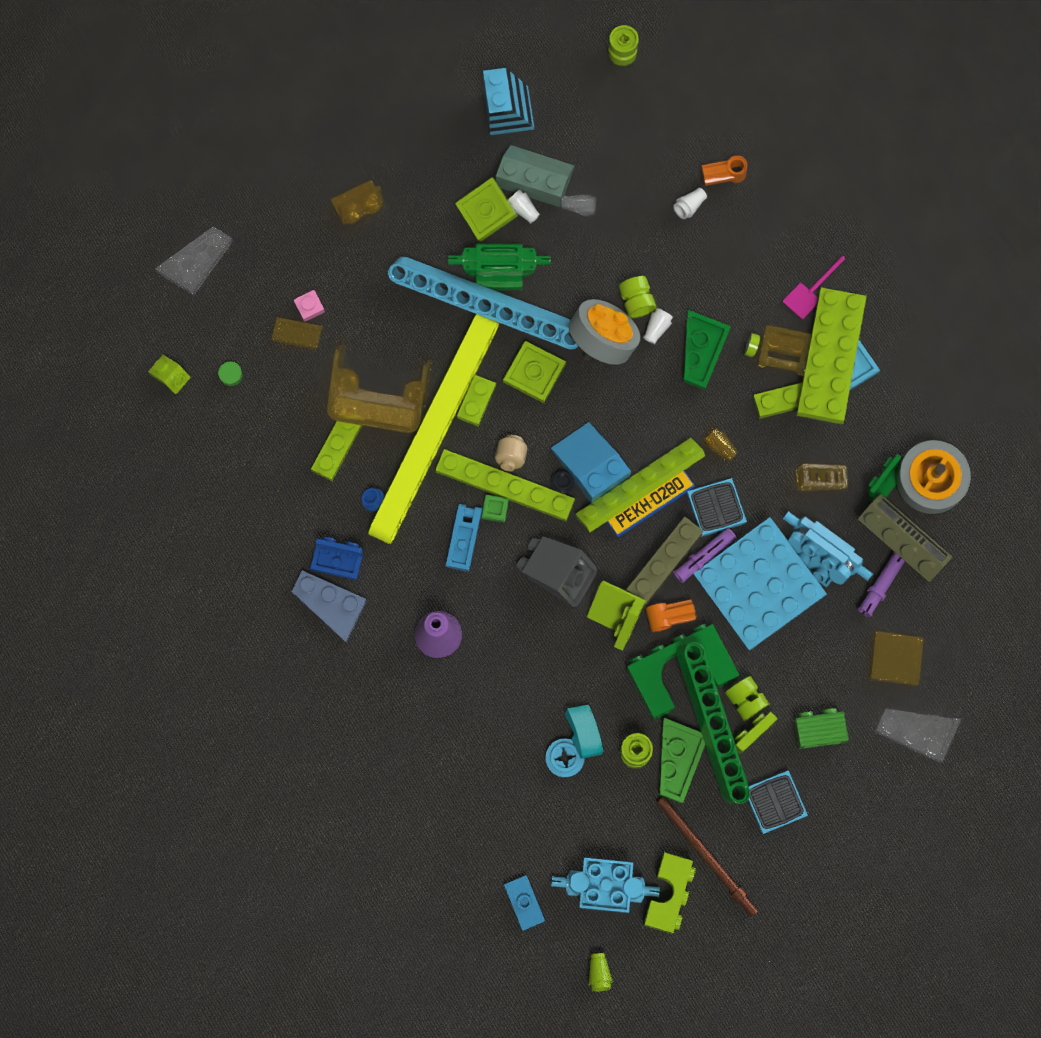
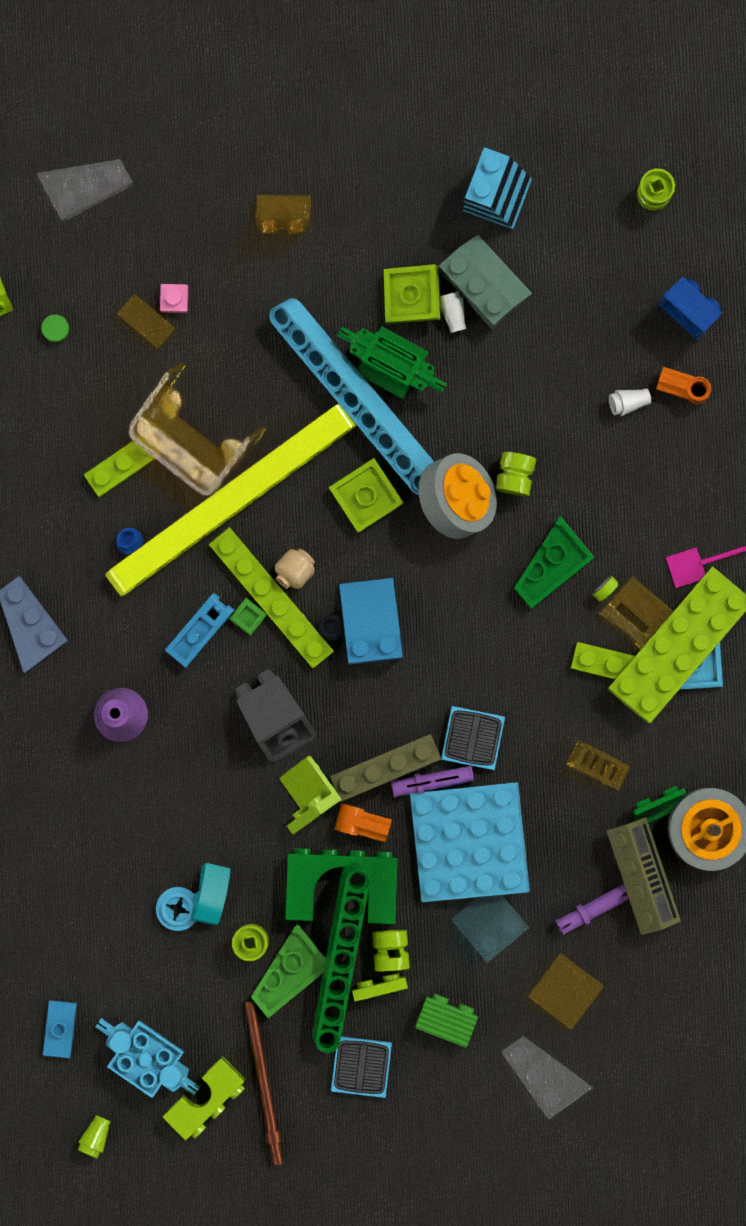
camera: 30 degrees right, 10 degrees up
(337, 558) = (59, 585): blue bracket -> none
(476, 400) = (291, 493): lime plate -> none
(580, 204) = (513, 340): clear cone -> none
(640, 484) = (408, 673): lime plate -> none
(650, 504) = (407, 696): tile -> none
(657, 325) = (520, 514): white cone -> none
(696, 115) = (690, 307): none -> blue slope
(720, 444) = (513, 674): clear yellow cone -> none
(811, 638) = (490, 925): none -> clear light blue slope
(824, 552) = (552, 846): medium azure piece -> none

